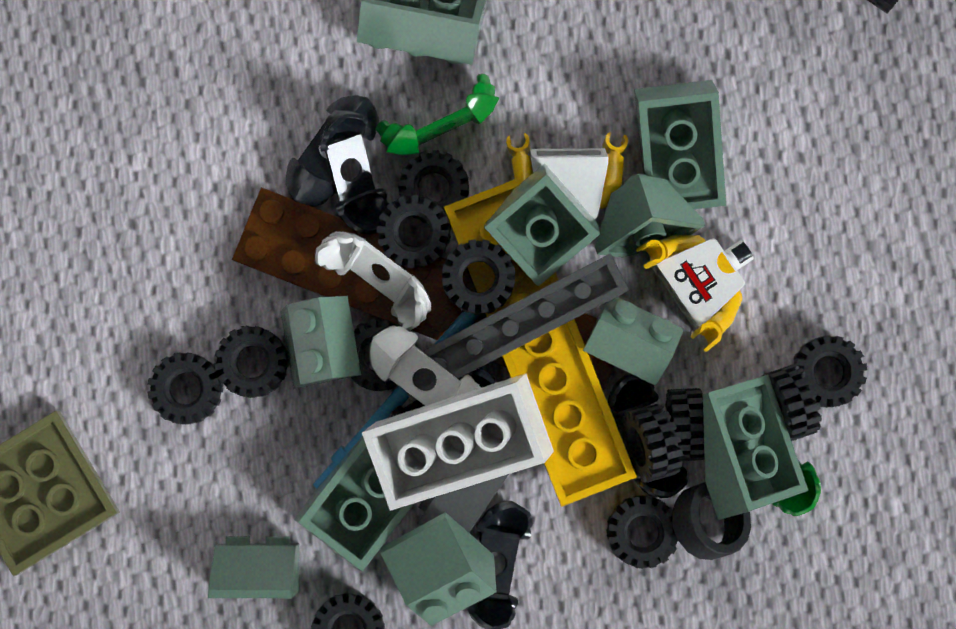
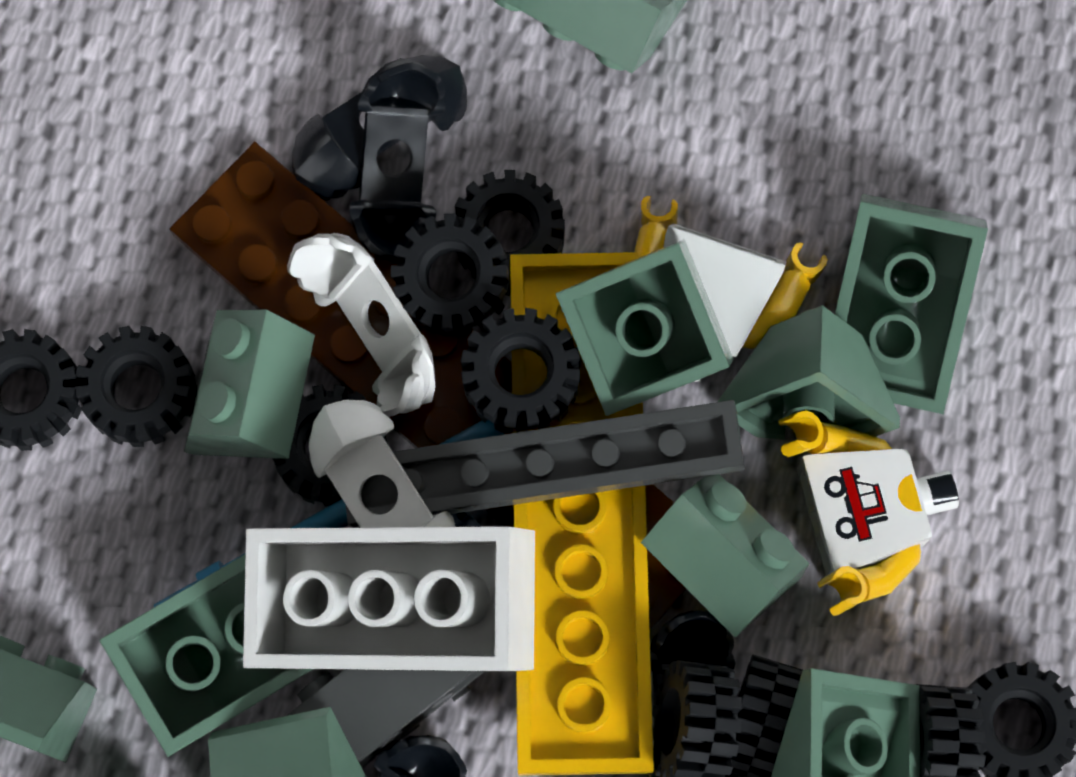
camera: 25 degrees right, 10 degrees down
(406, 139) = (494, 145): green piece -> none

